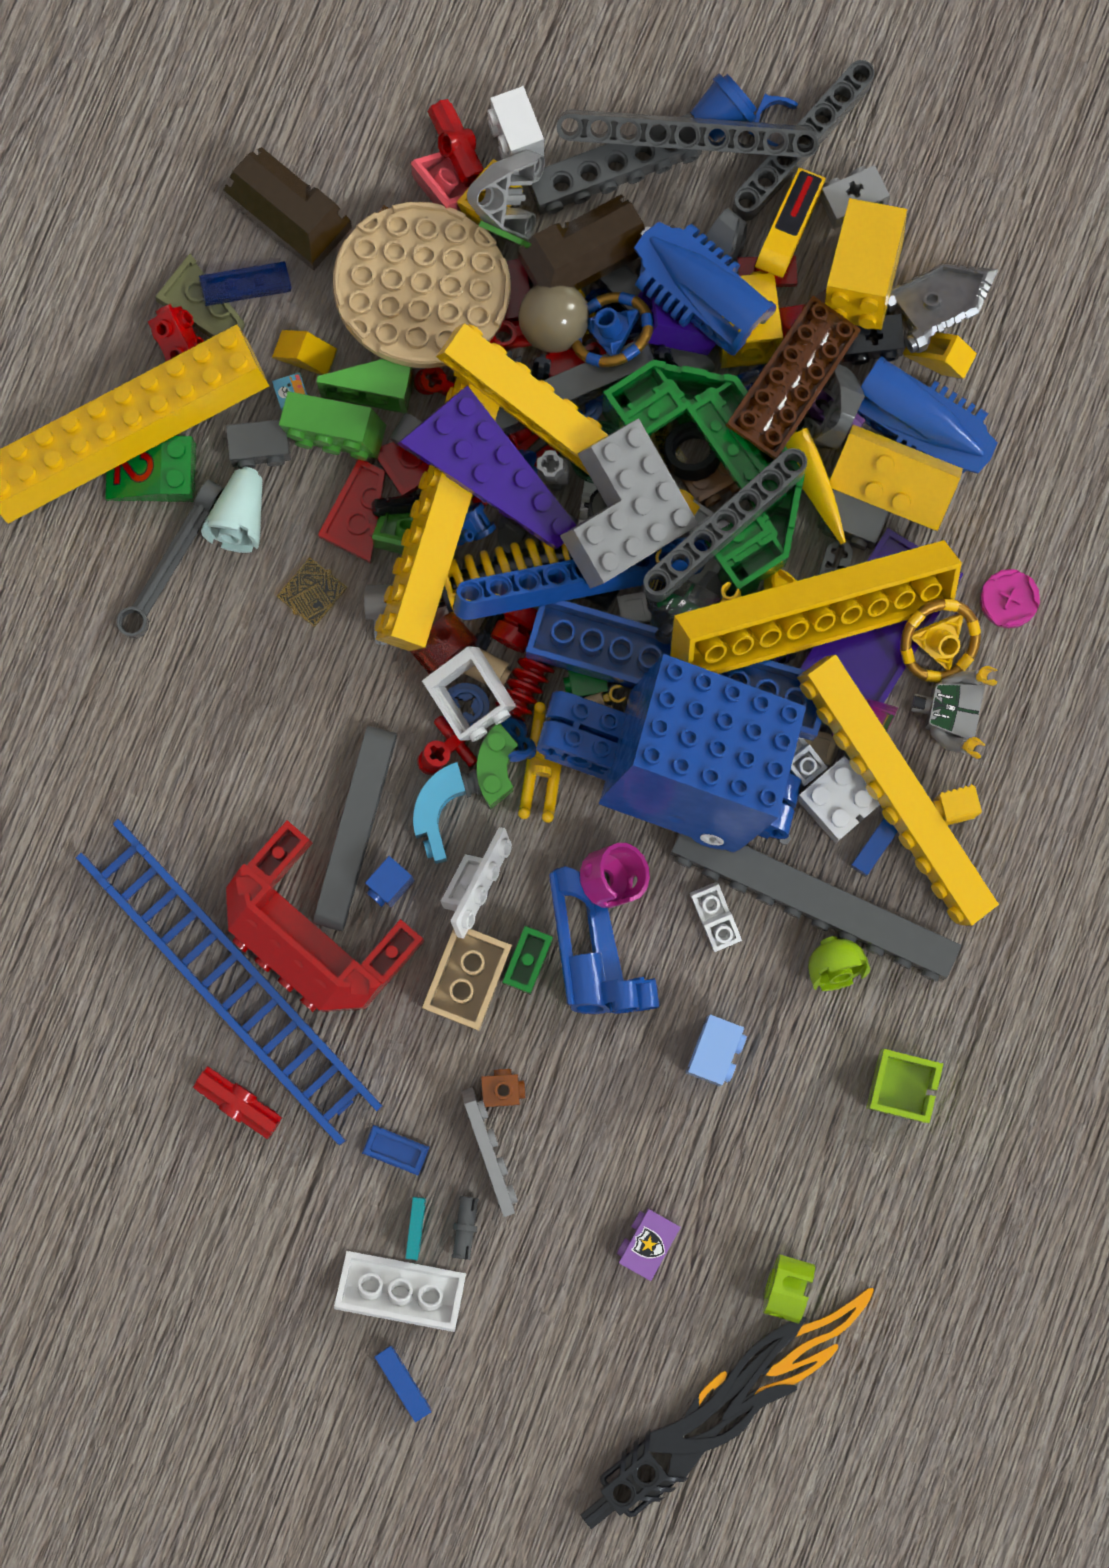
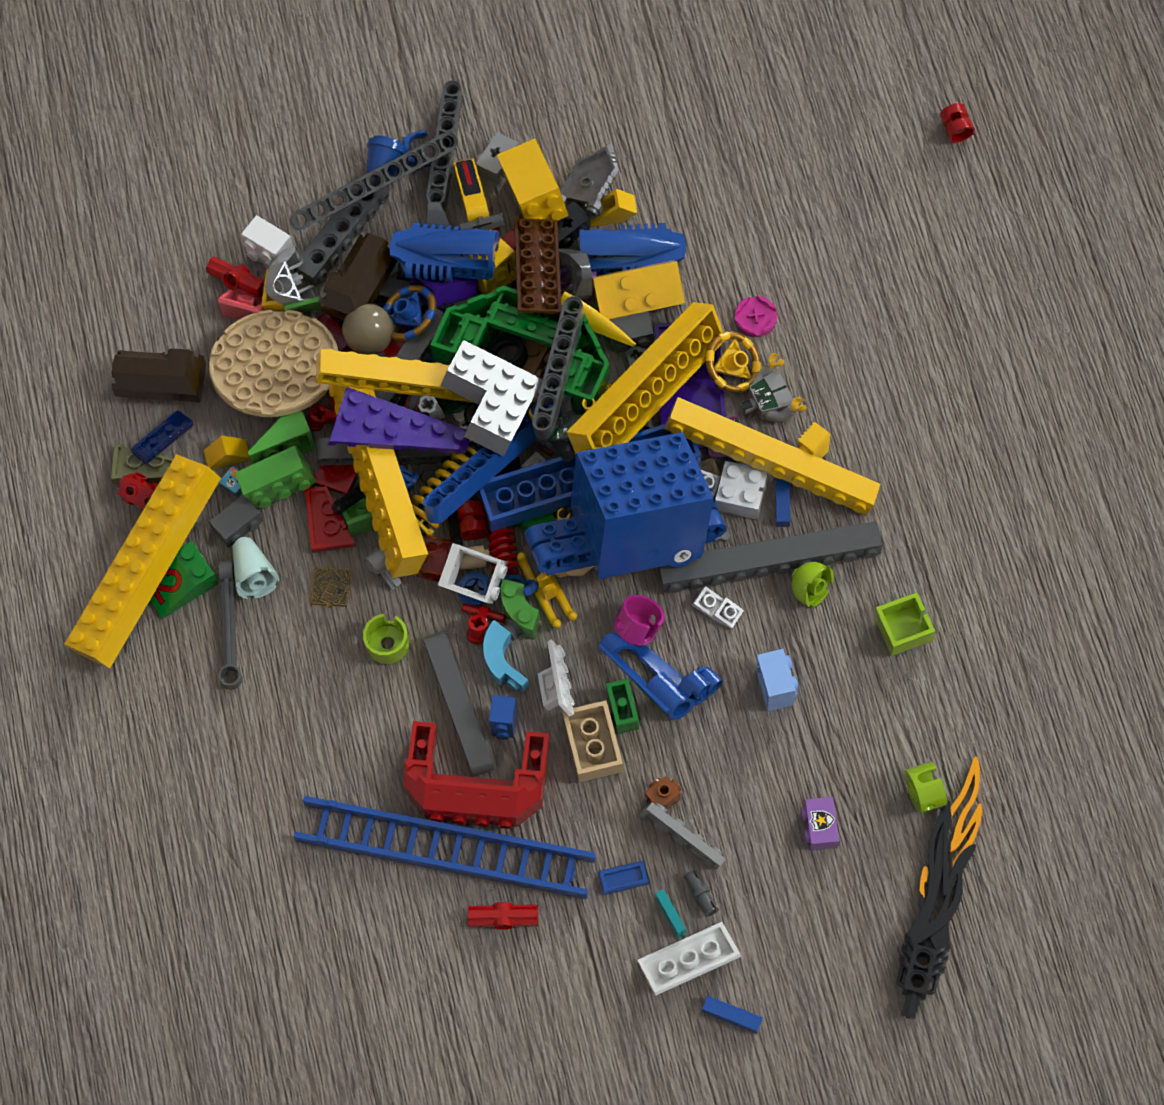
camera: 30 degrees left, 15 degrees down
(321, 683) = (379, 629): none -> lime piece
(769, 279) = (497, 221): none -> dark grey pin

